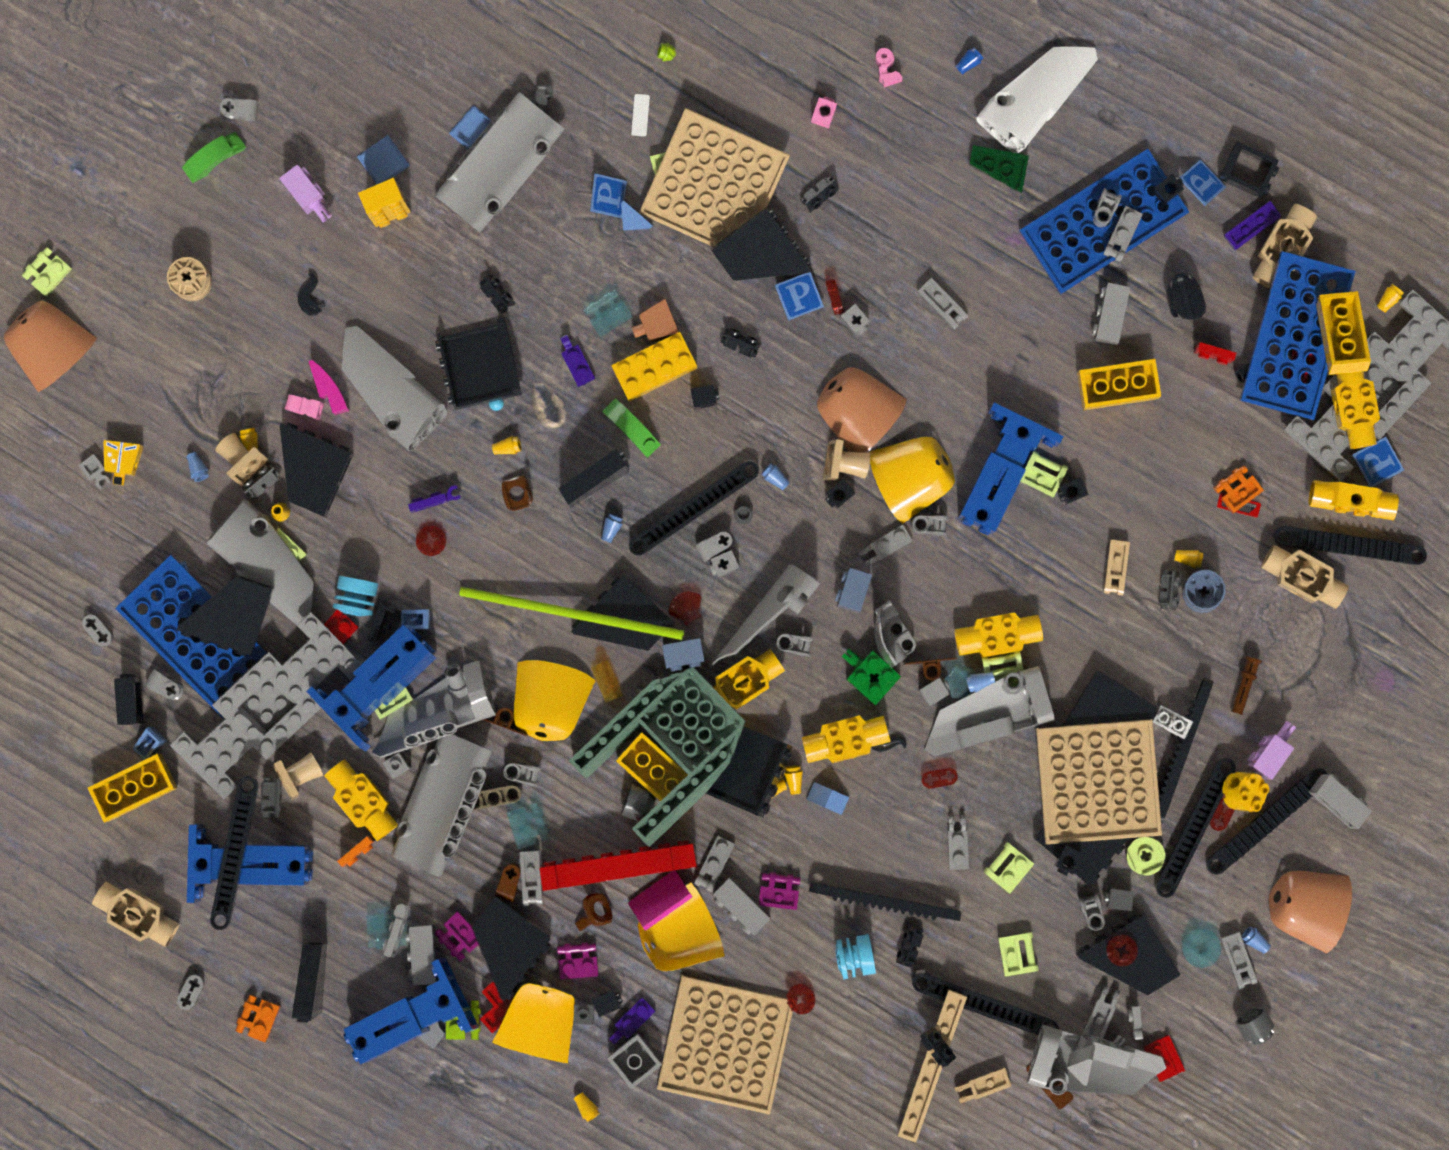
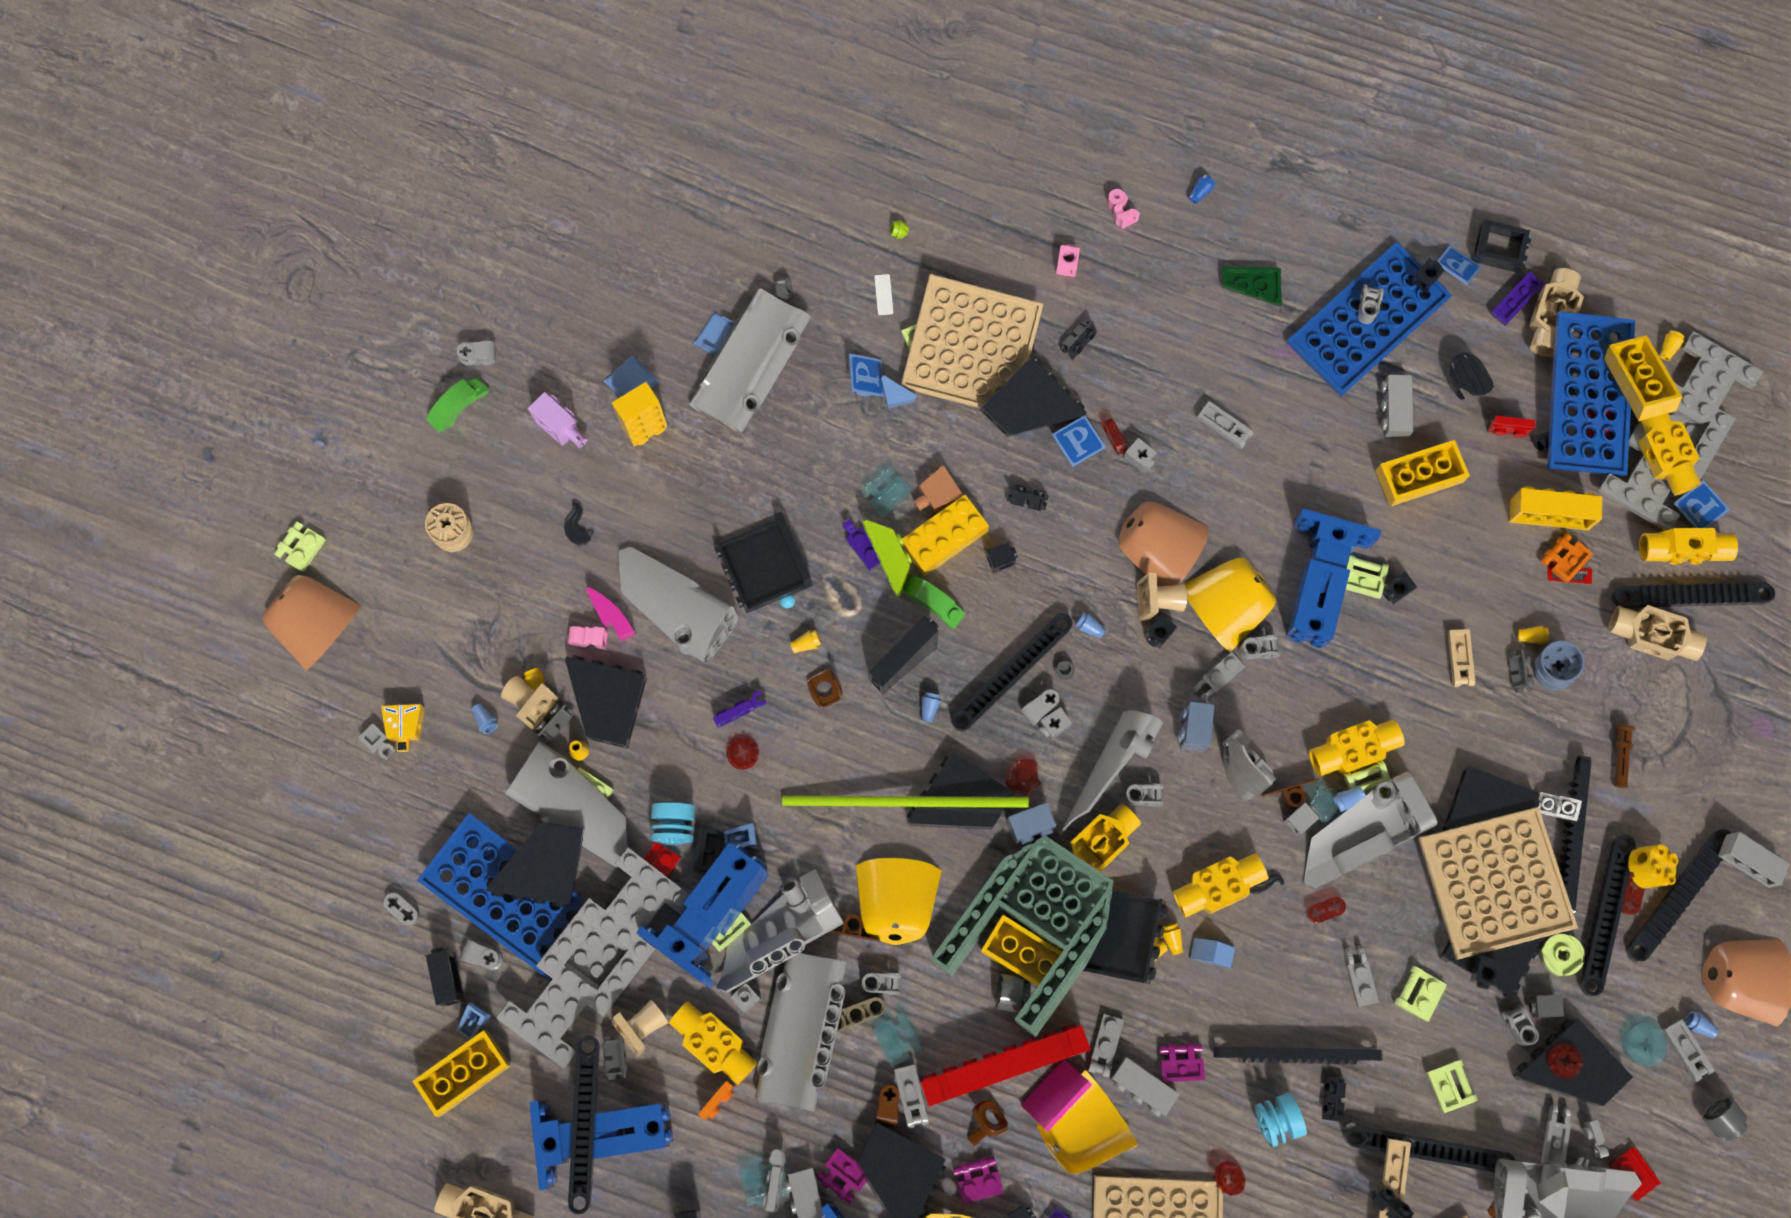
camera: 15 degrees left, 10 degrees down
(492, 286) = (775, 494): black hinge -> none
(598, 379) = (890, 554): none -> lime wedge
(606, 681) = (954, 869): clear yellow hinge -> none
(871, 665) = (1222, 817): green brick -> none
(1035, 96) = (1274, 211): white panel -> none
(1123, 233) = (1392, 325): light grey plate -> none
(1237, 441) = (1555, 508): none -> yellow brick
(1272, 753) = (1670, 821): lavender brick -> none

